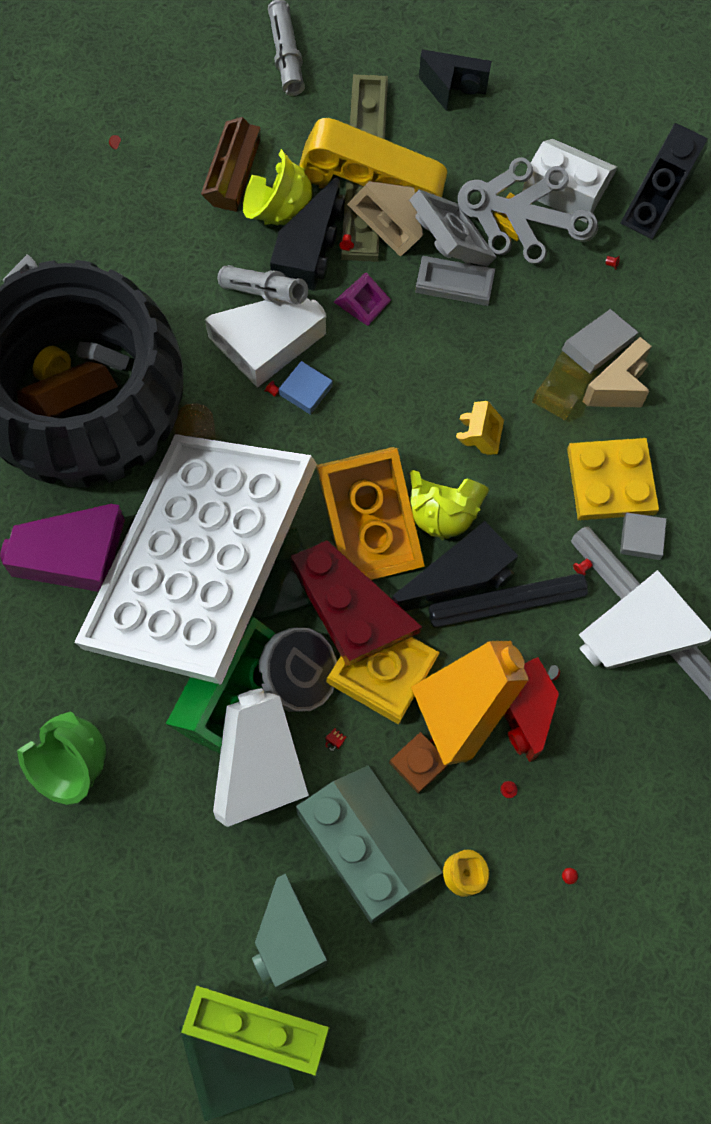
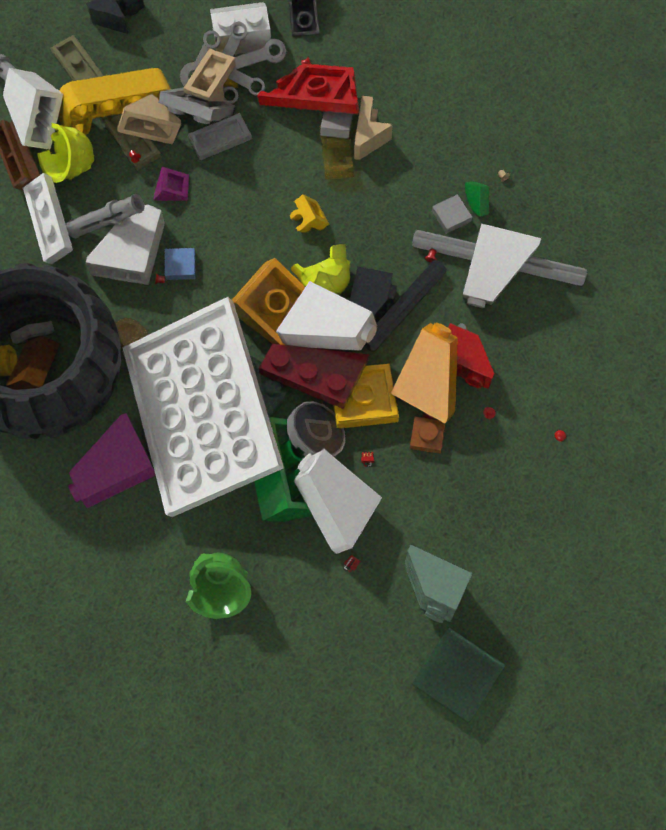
camera: 35 degrees left, 0 degrees up
(208, 249) = (47, 219): none -> white plate
(227, 842) = (352, 563): none -> red piece
(256, 1030) = (458, 648): lime hinge -> none
(282, 122) = (32, 107): none -> white slope
(305, 237) = (106, 168): black slope -> none
(368, 842) = (435, 501): sand green slope -> none
(398, 557) = (326, 321): none -> white slope
(466, 873) = (503, 476): yellow tile -> none
(488, 207) = (210, 76): none -> tan slope
(596, 297) = (315, 88): none -> red wing
(612, 478) = (408, 192): yellow plate -> none
(687, 538) = (478, 197): none -> green tile

